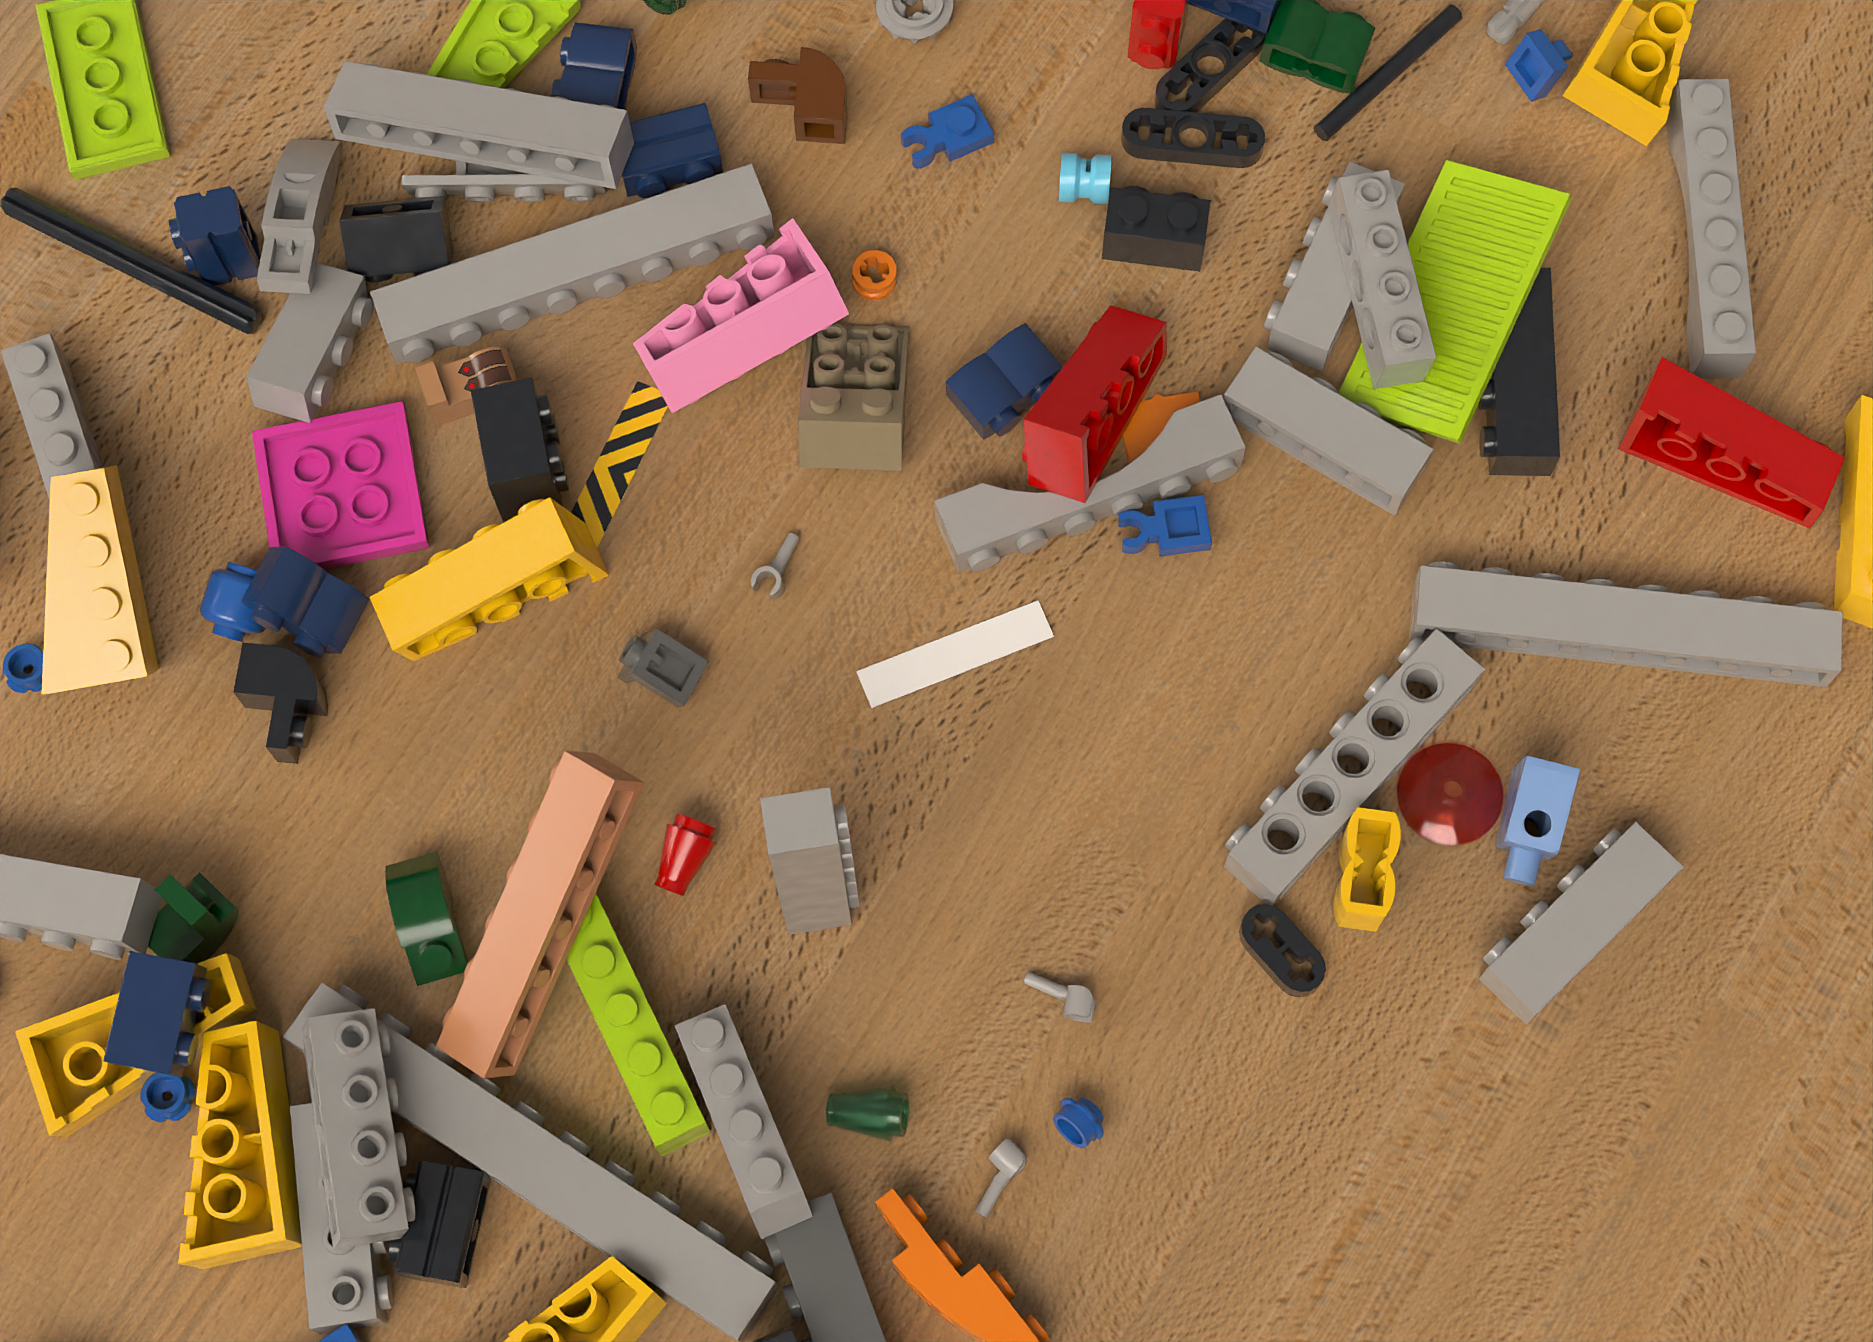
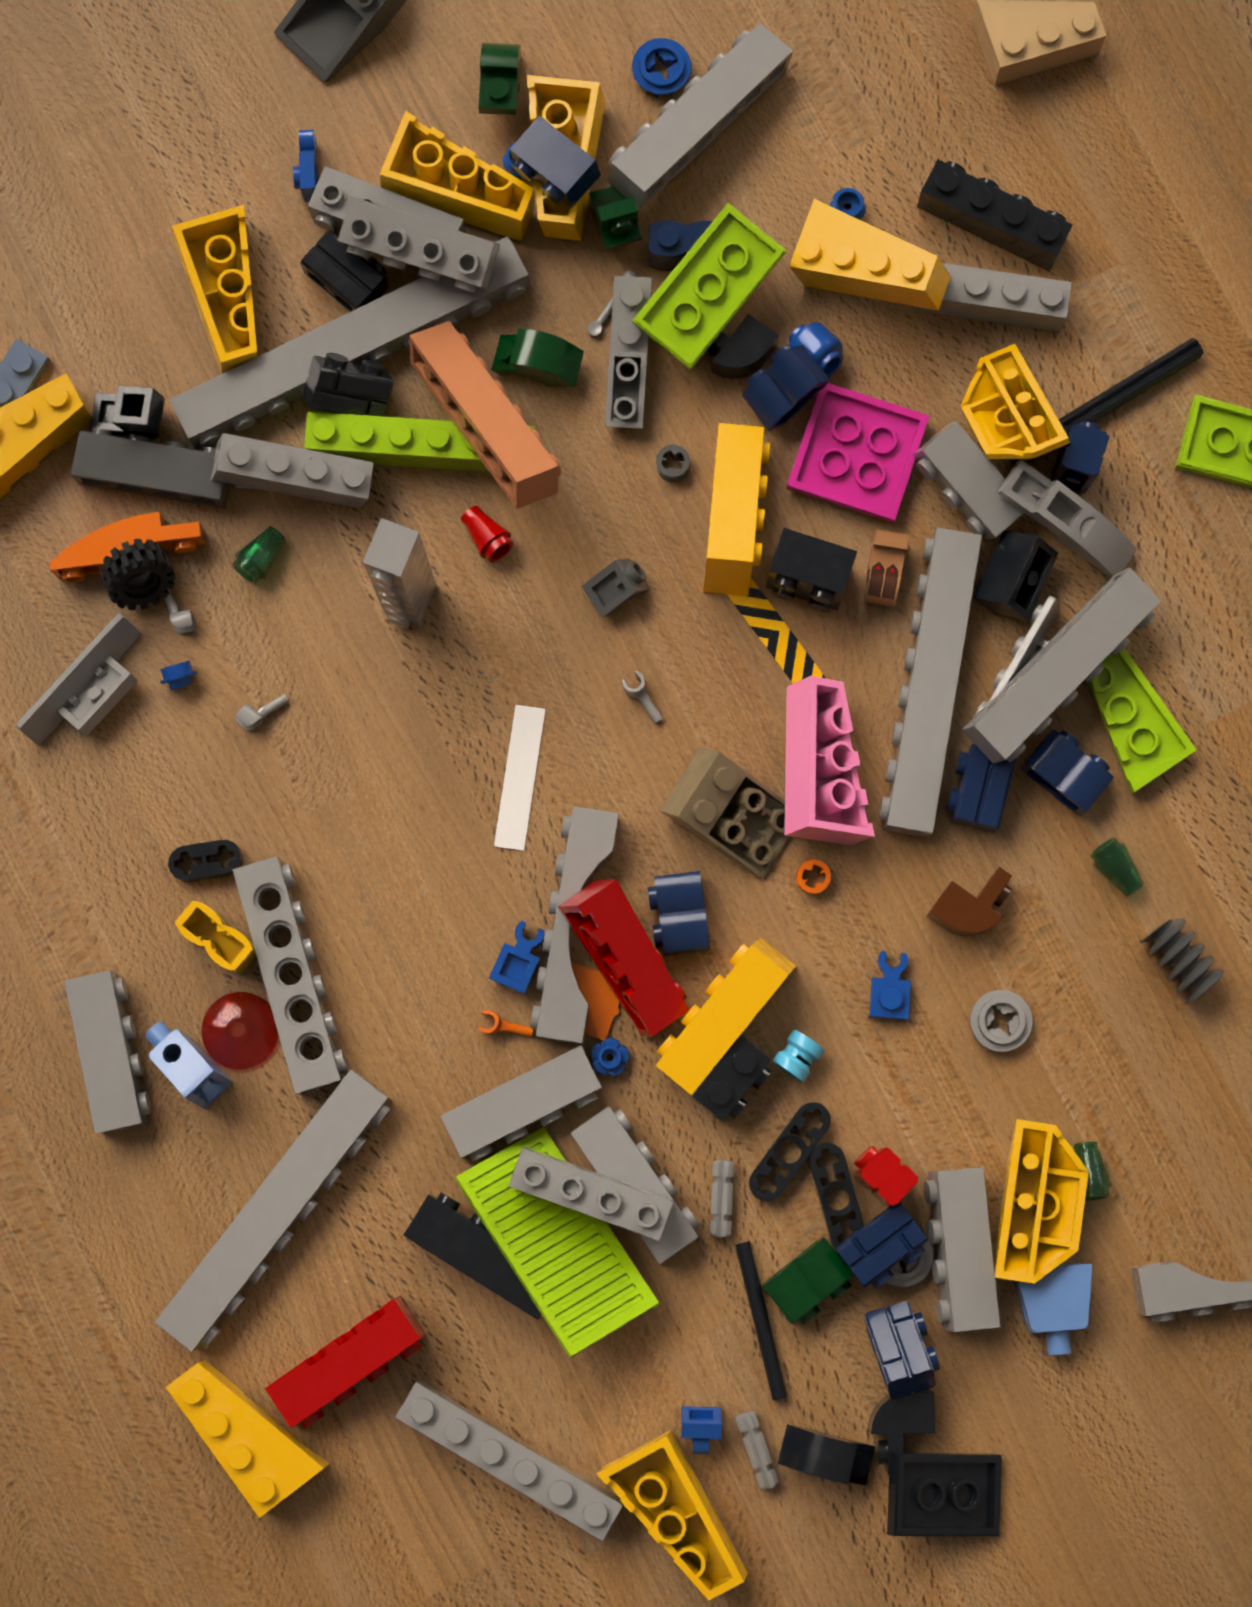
camera: 120 degrees right, 10 degrees up
(59, 1180) = (499, 78): none -> dark green brick
(180, 820) = (671, 241): none -> dark blue brick
(199, 331) = (1010, 409): none -> yellow wedge
(223, 747) = (709, 286): none -> lime tile
(345, 879) = (595, 327): none -> light grey hinge
(360, 816) = (627, 354): none -> light grey slope
(455, 699) = (670, 473): none -> dark grey bush
(595, 1117) = (347, 386): none -> black brick
(988, 1237) = (134, 560): none -> black tyre
(1086, 267) = (725, 1015): none -> yellow wedge
(1164, 1217) = (87, 686): none -> light grey bracket
(1211, 384) = (613, 1067): none -> blue plate
(1252, 504) = (505, 1026): none -> orange hand
(1288, 176) = (721, 1198): none -> light grey axle

